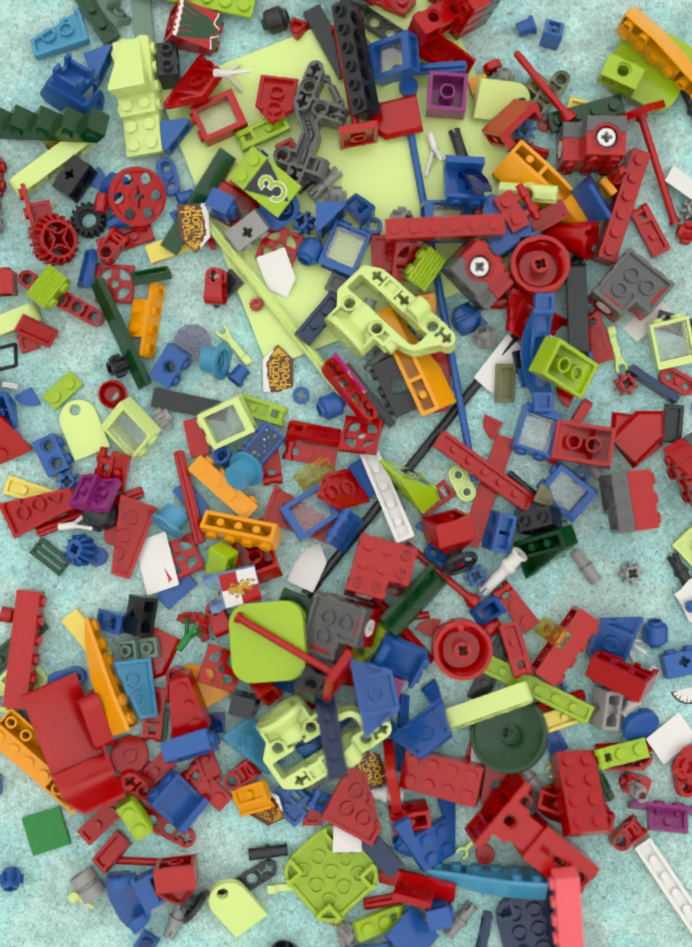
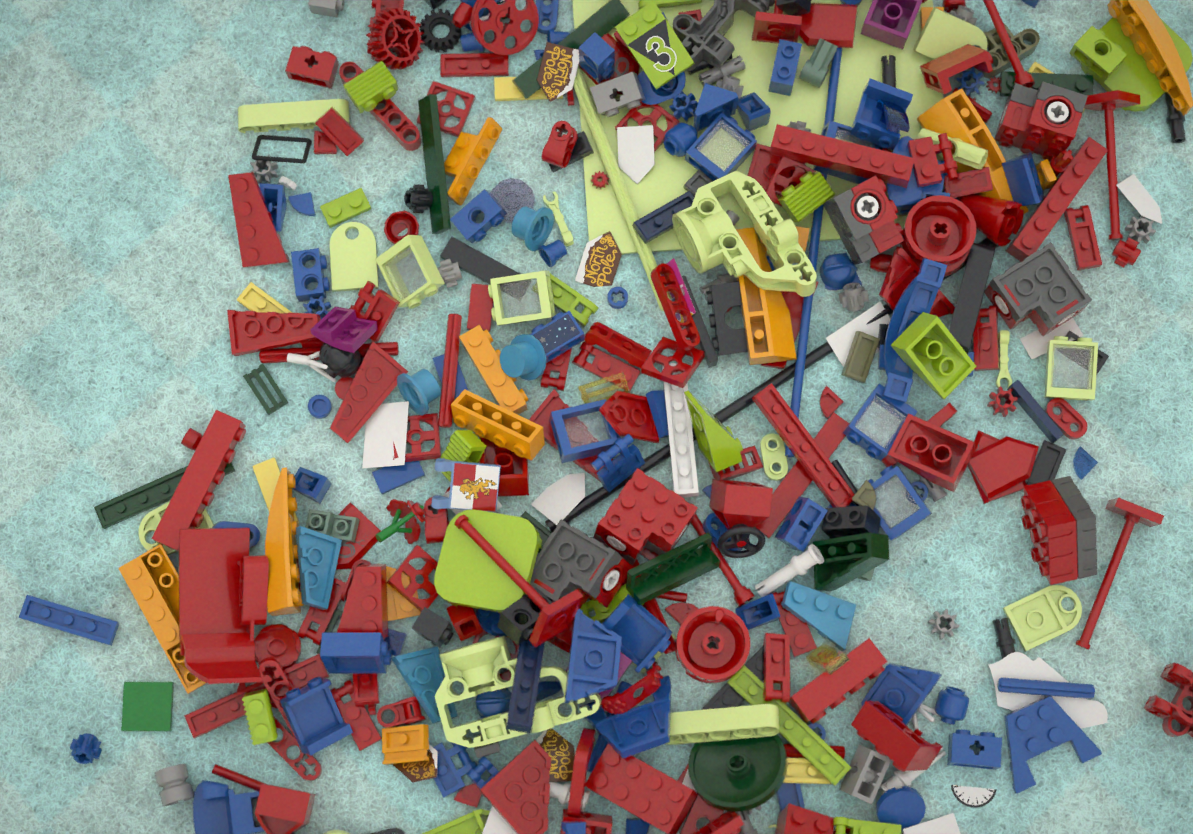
camera: 15 degrees right, 10 degrees down
(74, 896) = (153, 796): yellowish green hand -> none
(80, 550) = (303, 391): blue gear -> none
(87, 268) = (421, 82): blue tile -> none
(111, 851) = (216, 756): red tile -> none
(113, 244) = (462, 63): red piece -> none
(140, 615) = (347, 487): black brick -> none
(150, 275) = (490, 111): dark green tile -> none
(219, 454) = (503, 335): blue piece -> none
(268, 851) = (401, 818): black pin -> none
(330, 406) = (648, 319): blue head -> none
(374, 164) = (785, 67): none -> blue brick
(379, 226) = (766, 128): blue bush -> none
(399, 156) = (816, 68): none -> sand green piece
(407, 716) = (624, 702): none -> red piece
(434, 149) = (859, 71): white plant -> none
(472, 569) = (757, 574): blue gear -> none
(492, 627) = (757, 635): red hose -> none
(535, 593) = (824, 612): none -> dark azure wing
(564, 397) = (926, 394): red tile -> none
(585, 566) = (892, 599): light grey axle -> none
(630, 501) = (966, 531): piece -> none

